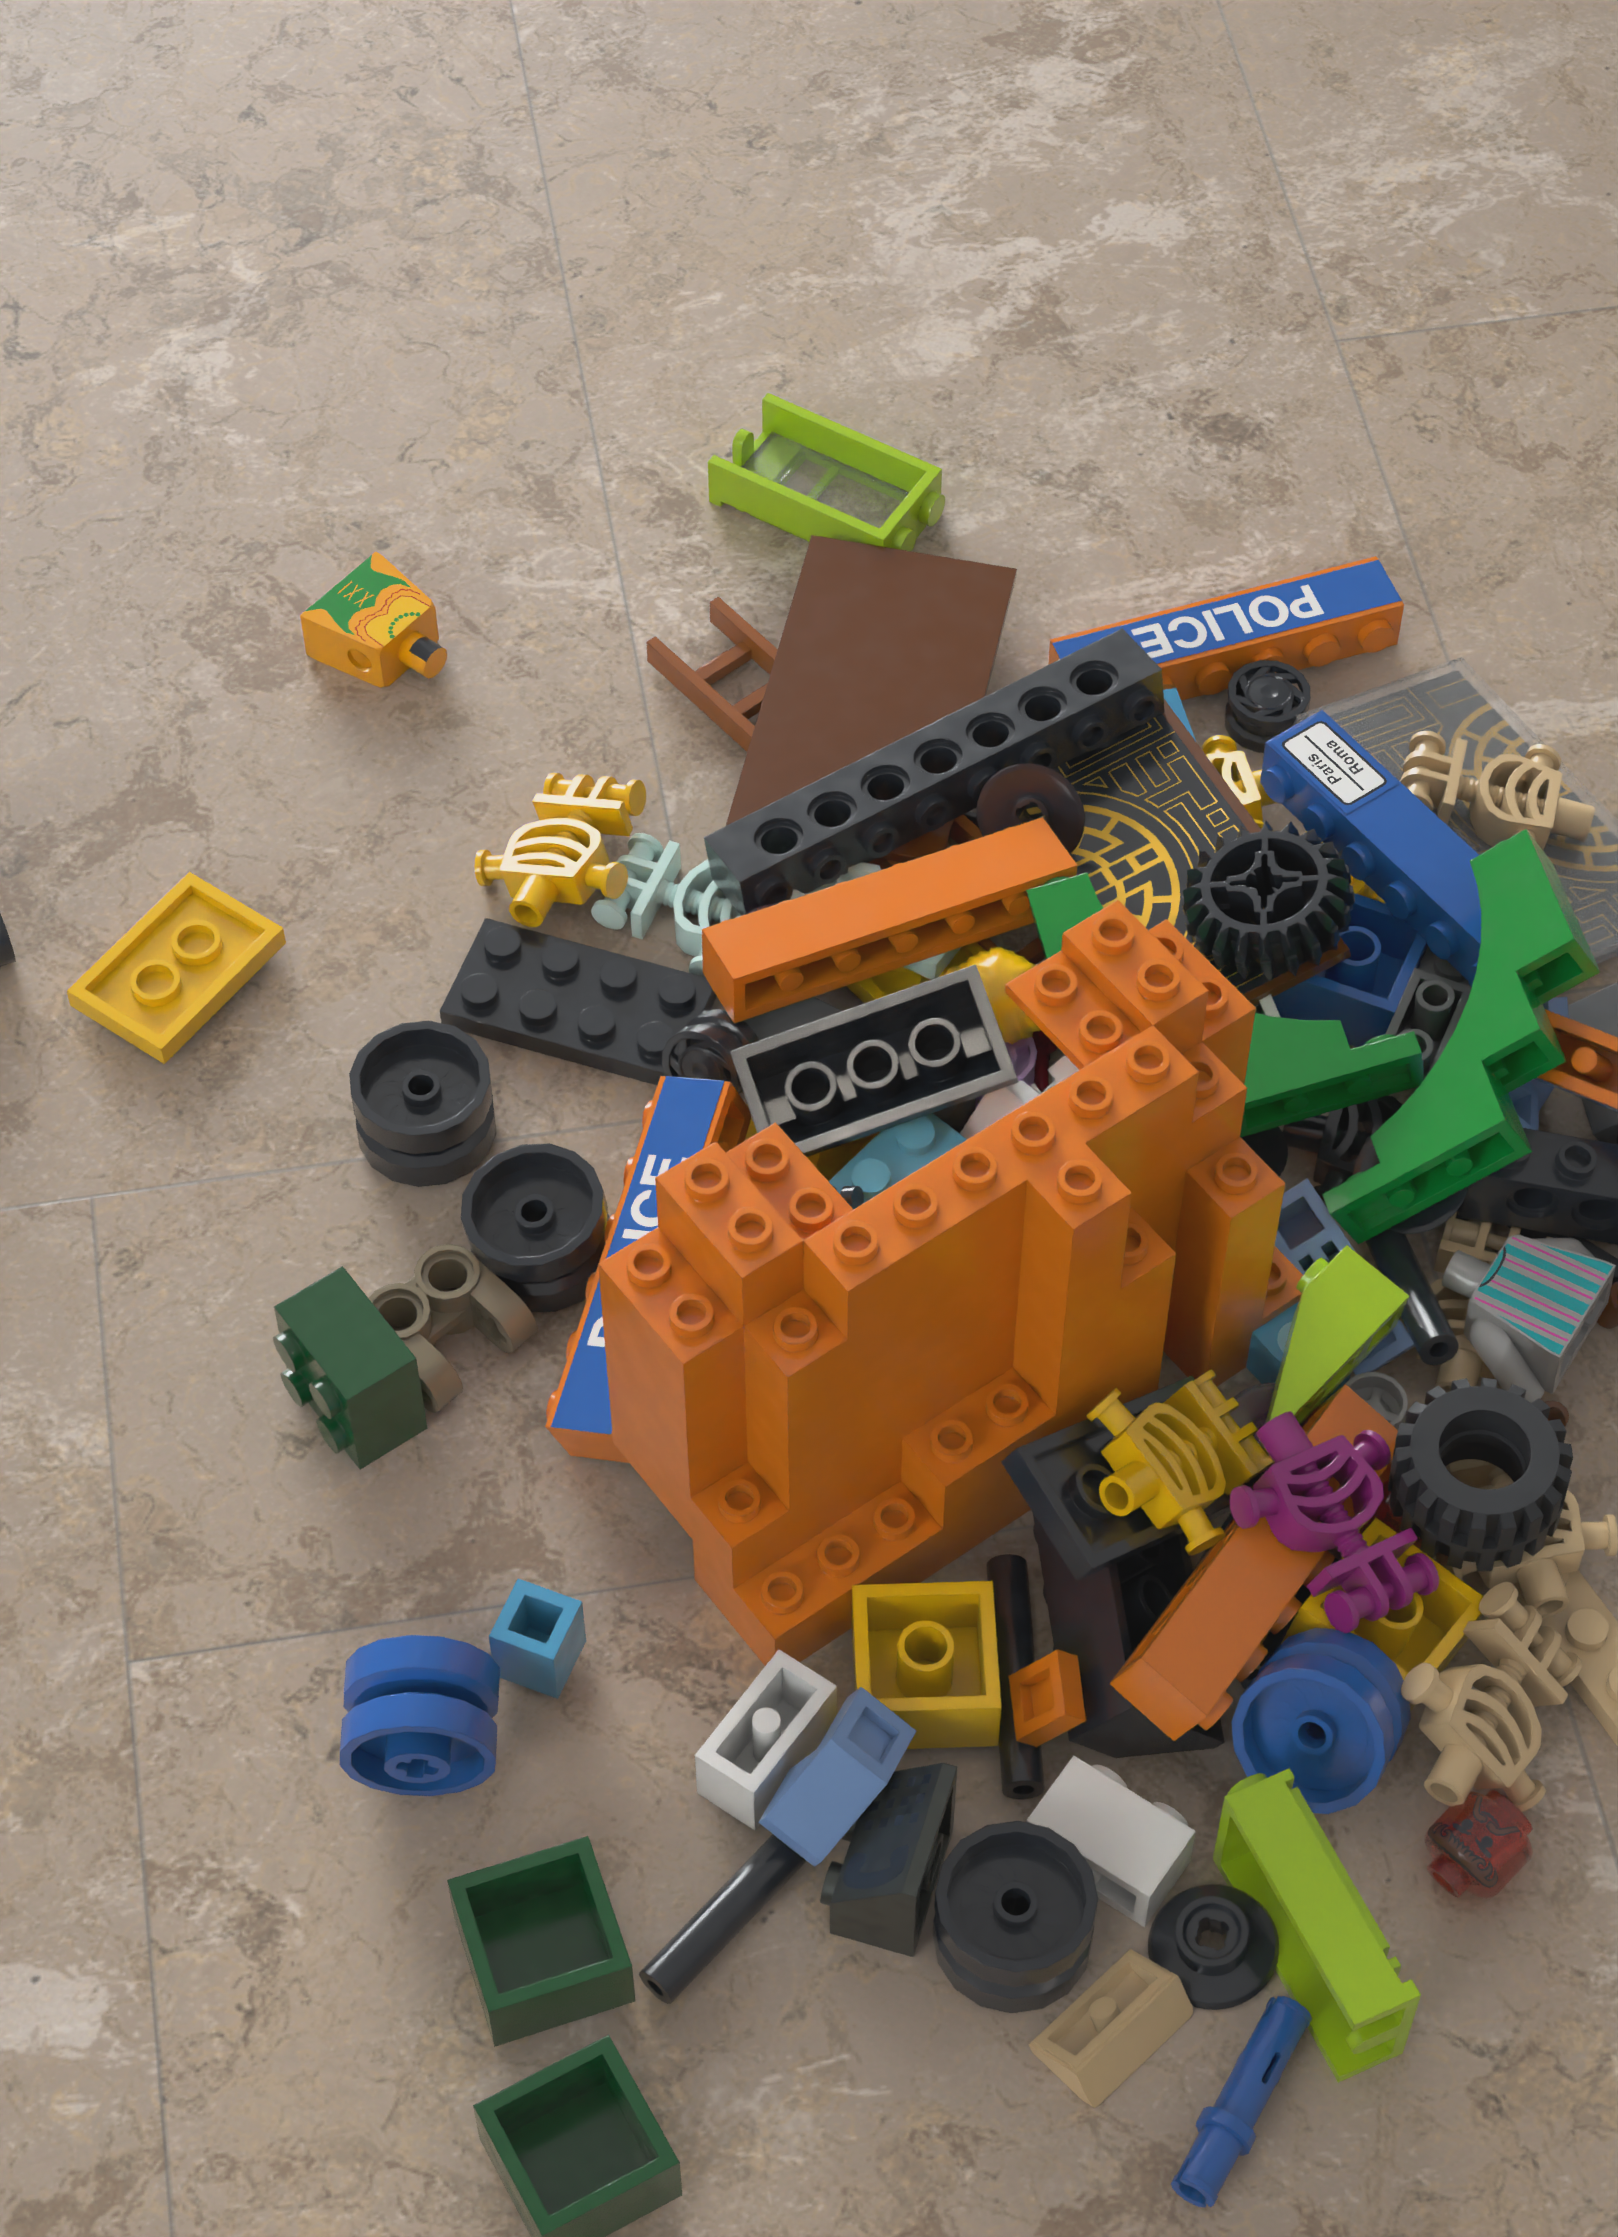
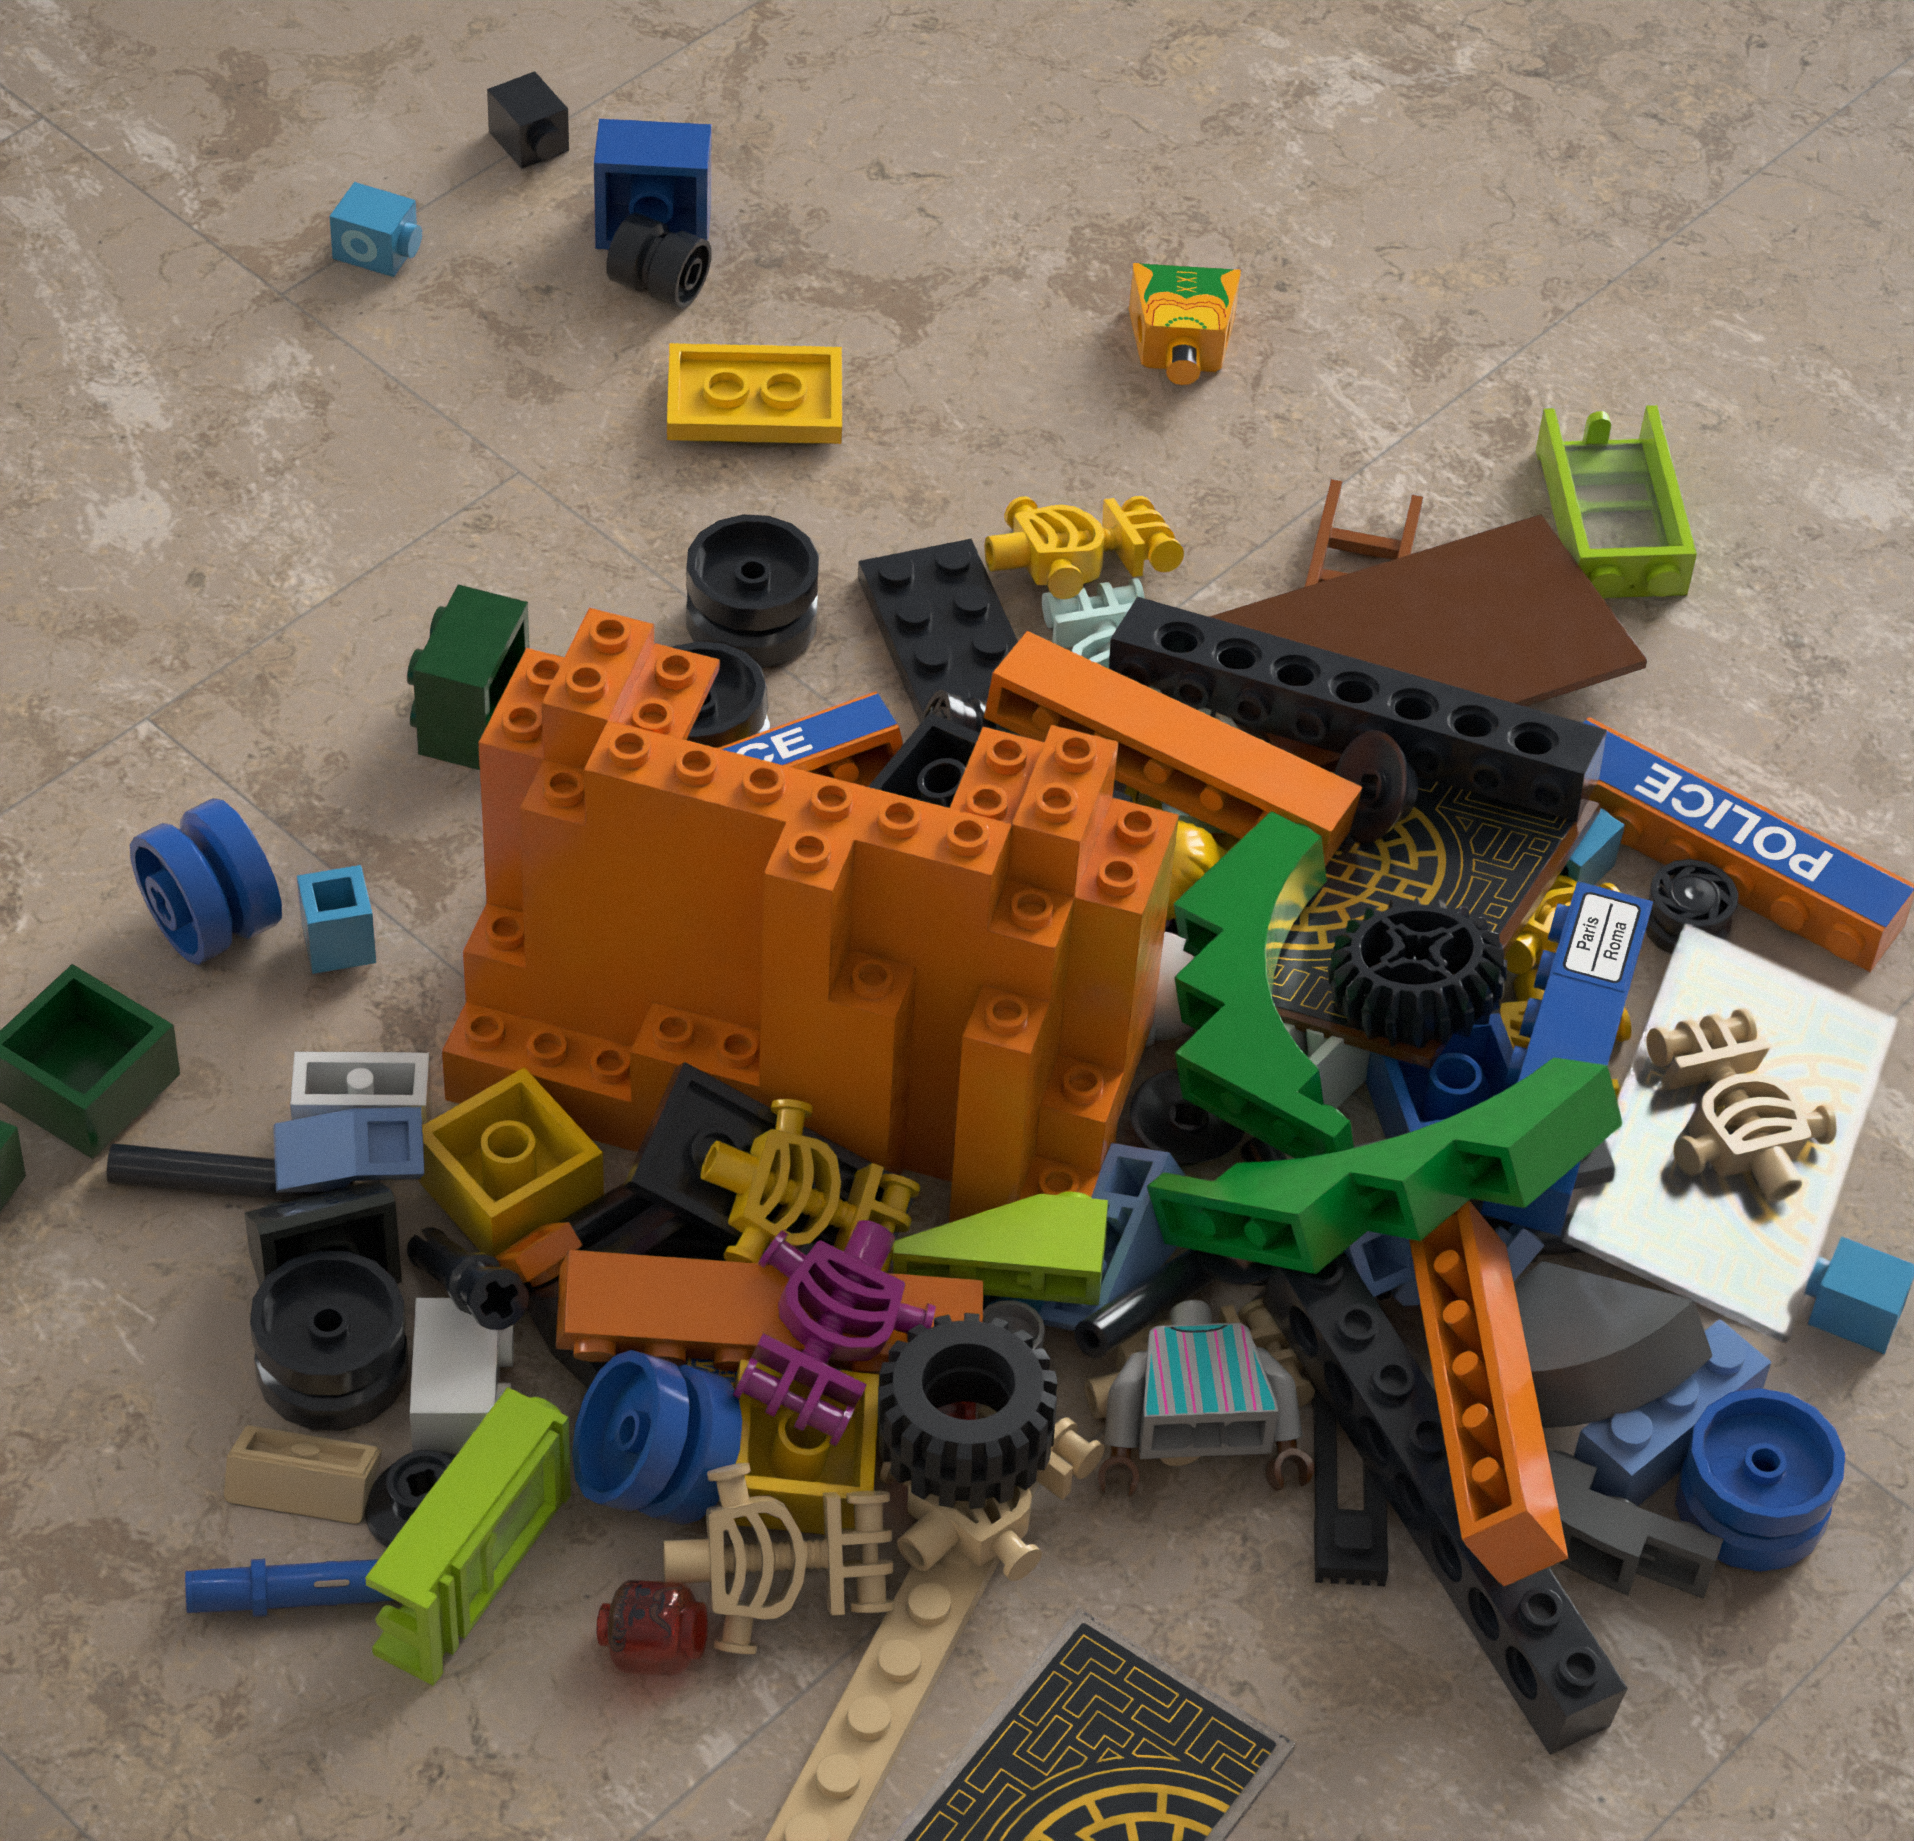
camera: 50 degrees right, 5 degrees down
(1061, 1761) = (471, 1279): none -> black pin

